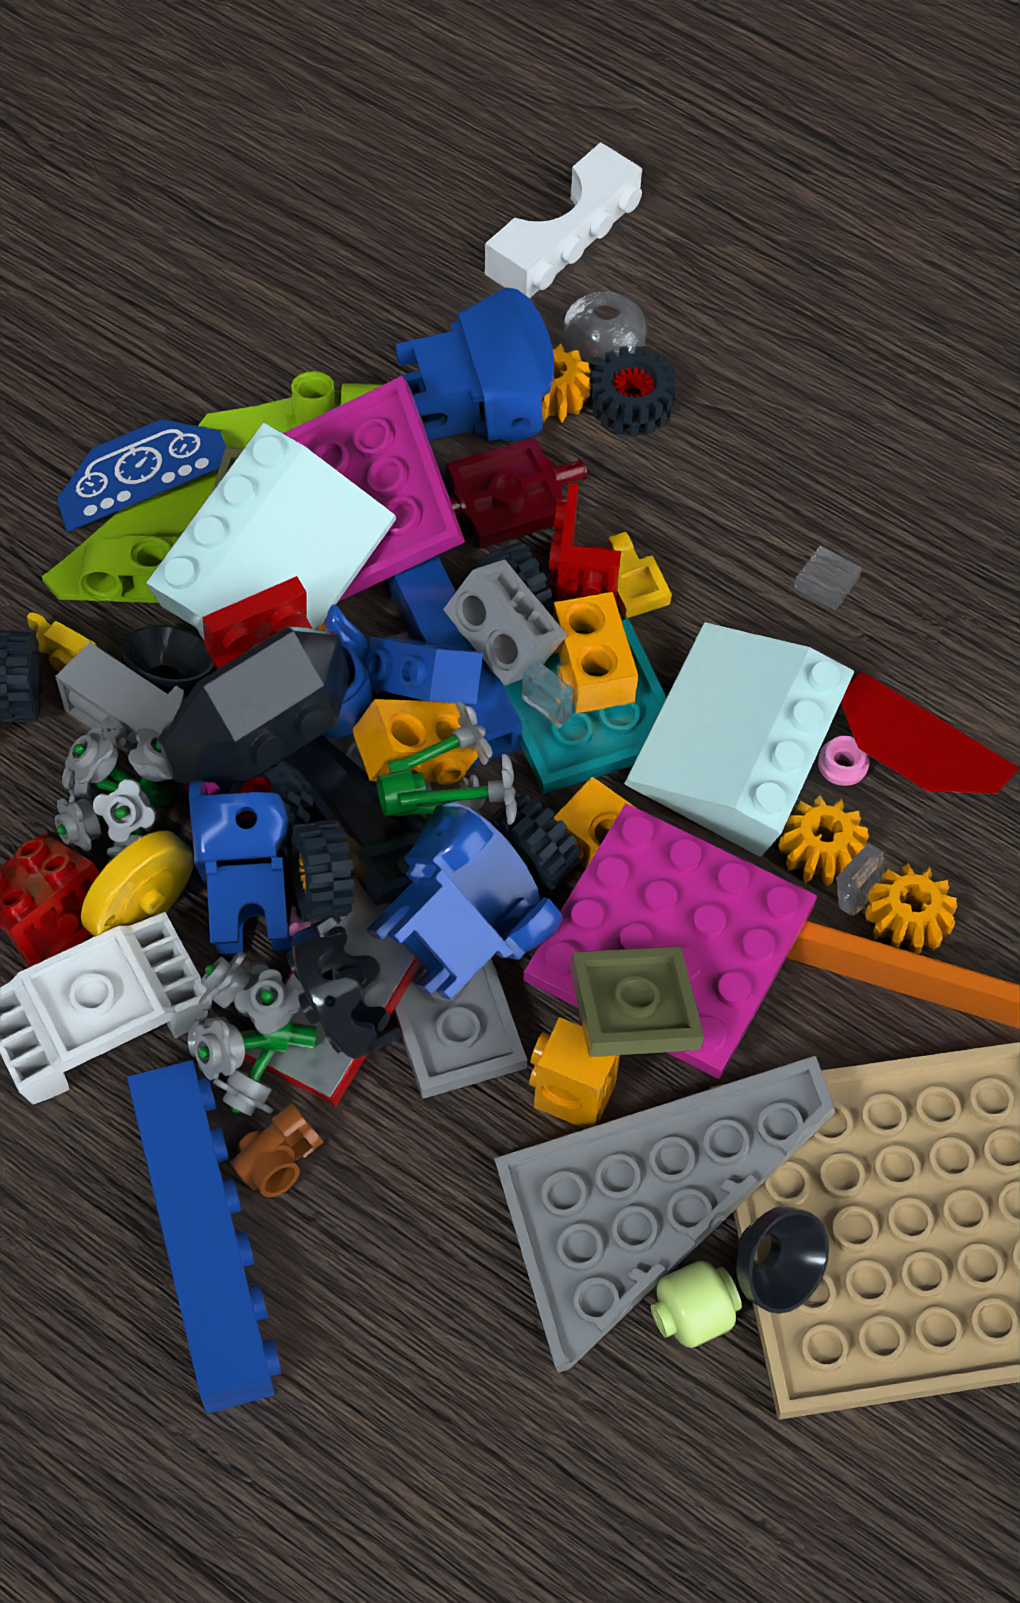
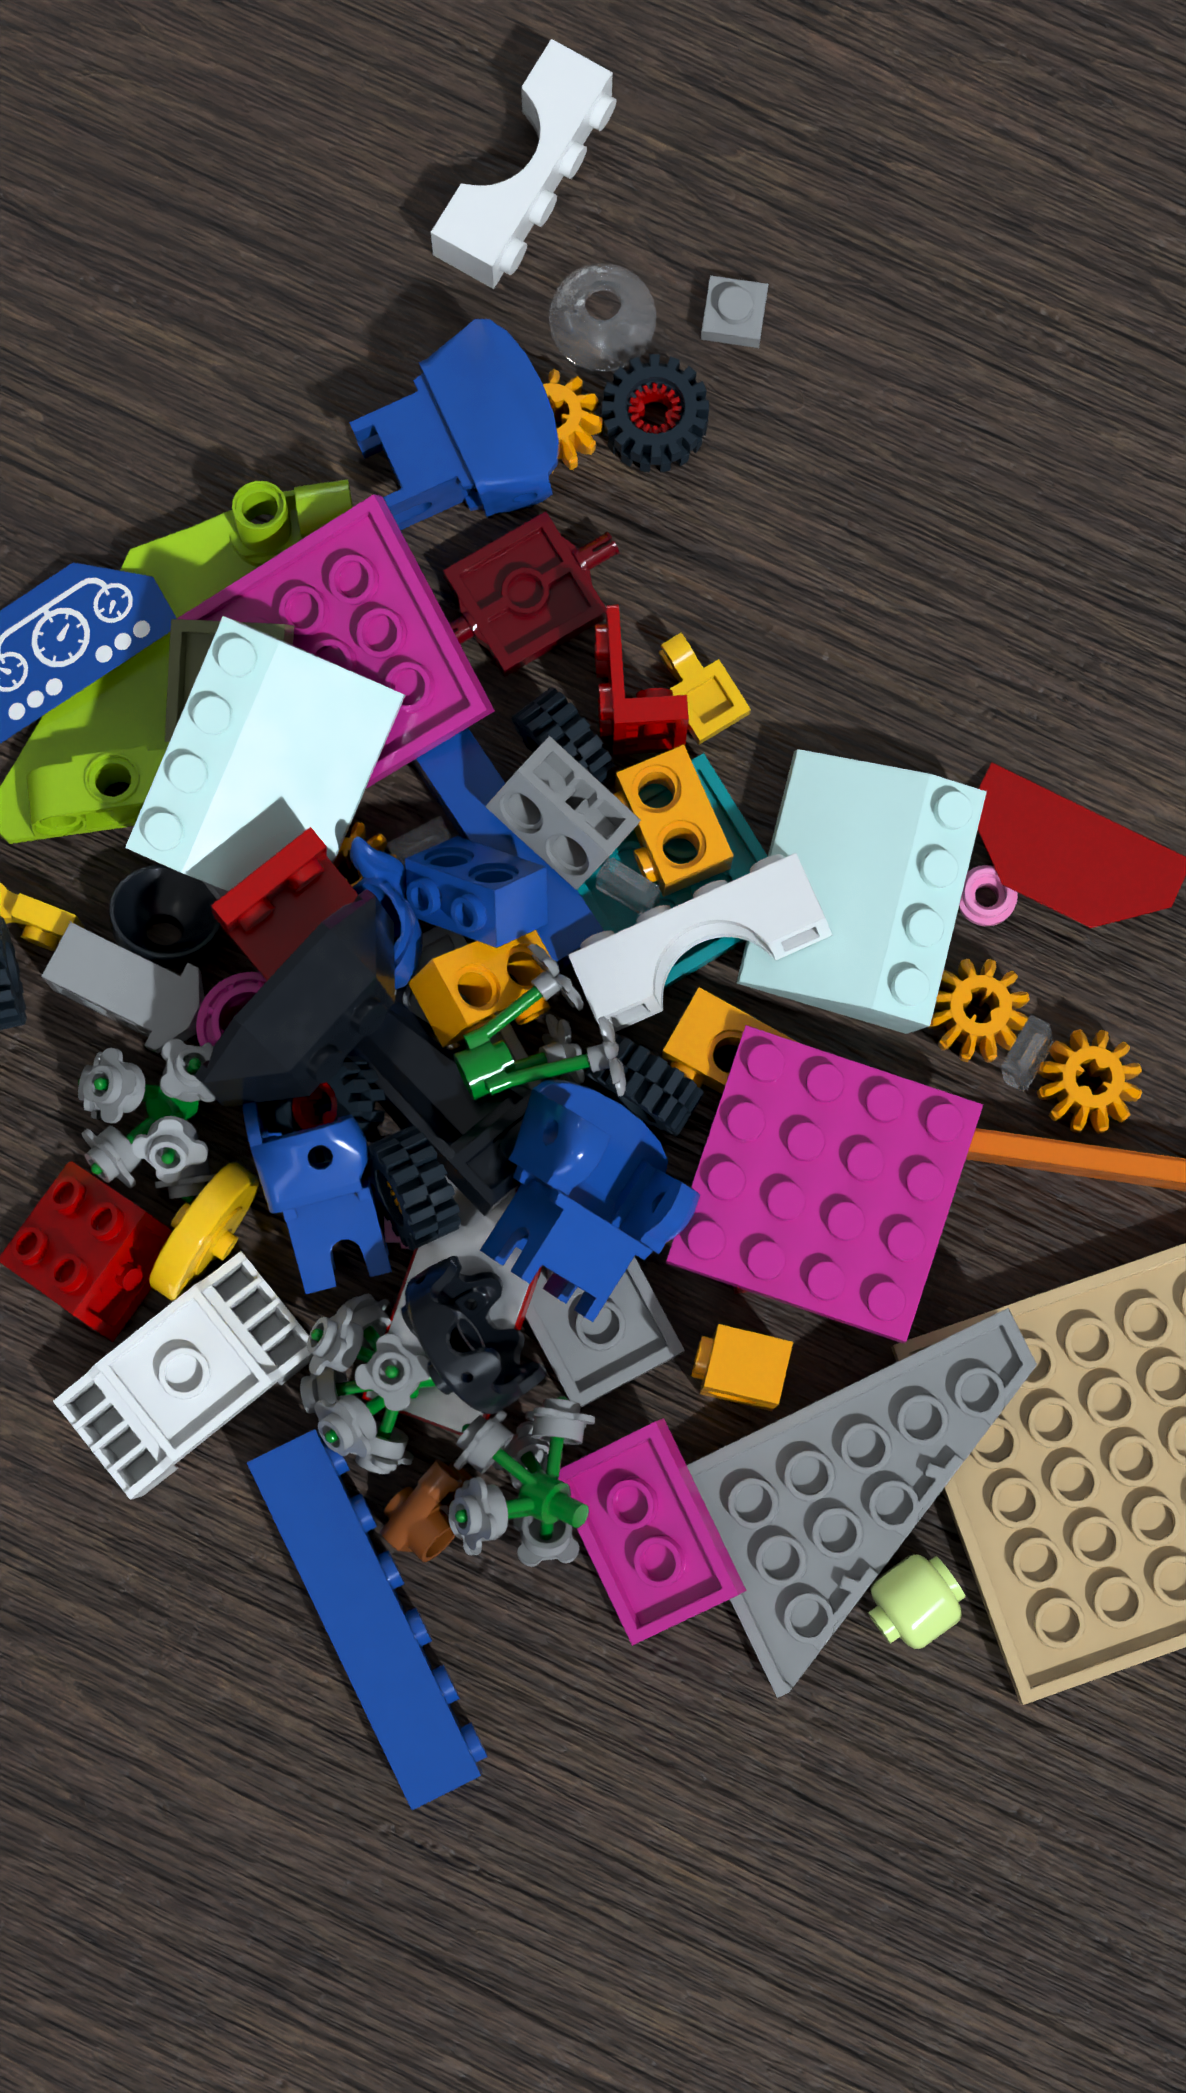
camera: 10 degrees left, 20 degrees up
(369, 1126) = (533, 1461): none -> light grey plant
(466, 1202) = (650, 1532): none -> dark pink plate
(635, 1001) = (801, 1294): olive plate -> none
(655, 718) = (628, 969): none -> white arch
(706, 339) = (734, 311): none -> light grey plate
(794, 1261) = (1002, 1548): black piece -> none
(827, 577) = (934, 640): clear tile -> none

